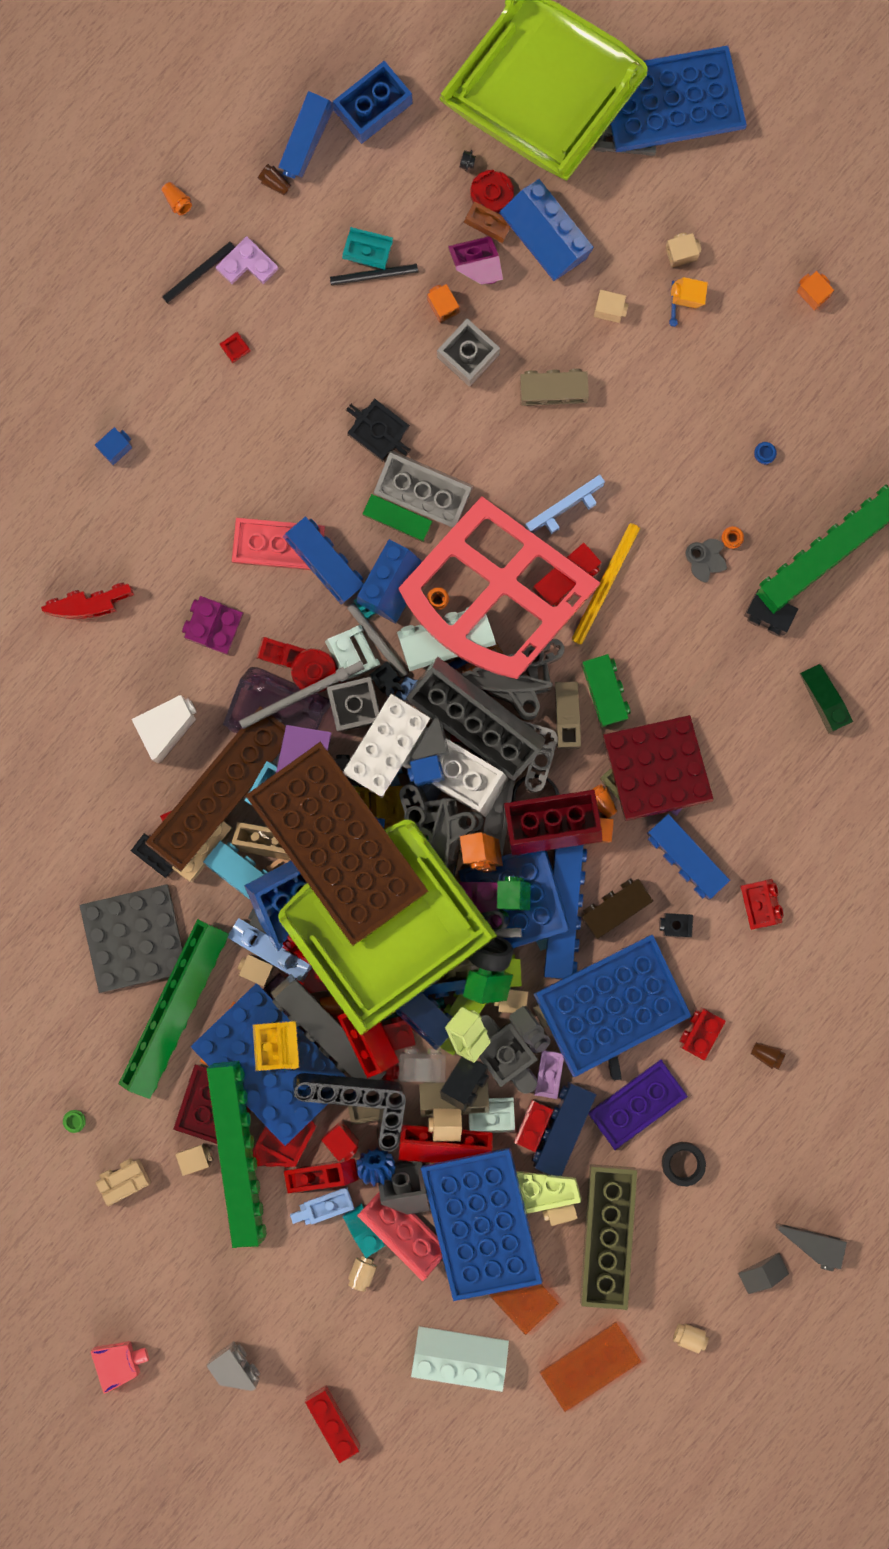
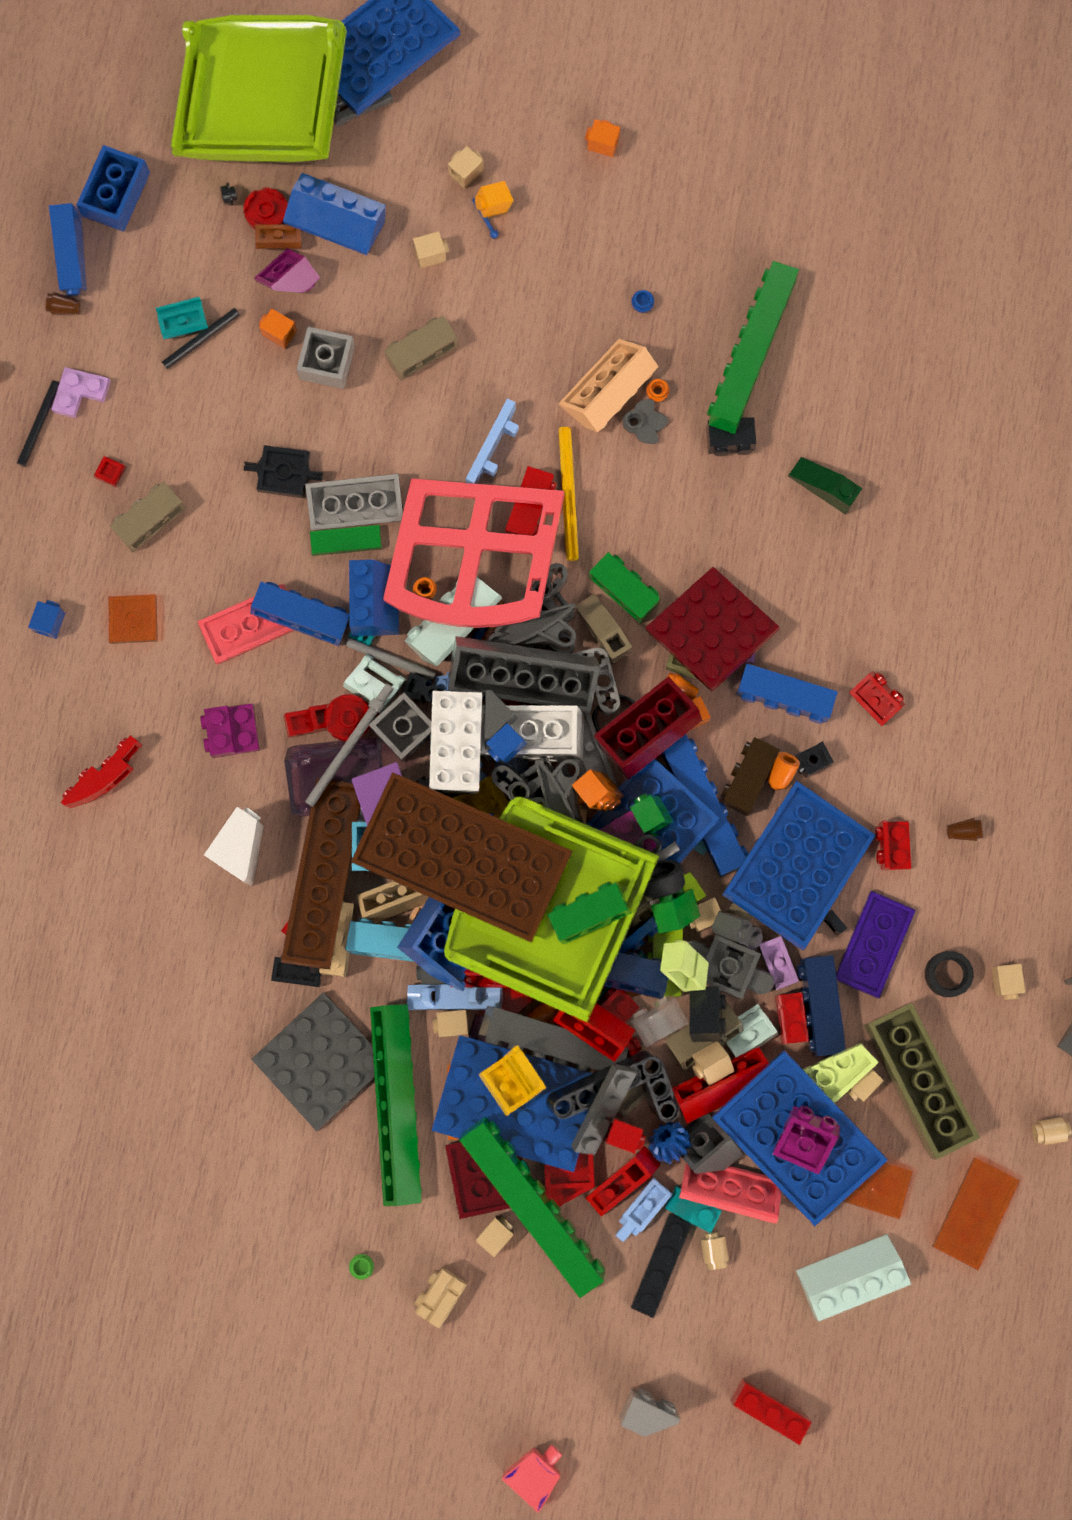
camera: 30 degrees left, 5 degrees down
(184, 485) = (132, 619): none -> clear orange tile
(244, 404) = (147, 516): none -> dark tan brick
(312, 1259) = (660, 1266): none -> black plate
(336, 1111) = (603, 1109): none -> dark grey plate
(412, 948) = (589, 912): none -> green brick
(485, 1229) = (807, 1139): none -> magenta plate
(646, 920) = (783, 771): none -> orange brick
(693, 509) = (609, 384): none -> light nougat slope
(729, 1198) = (1008, 981): none -> tan brick

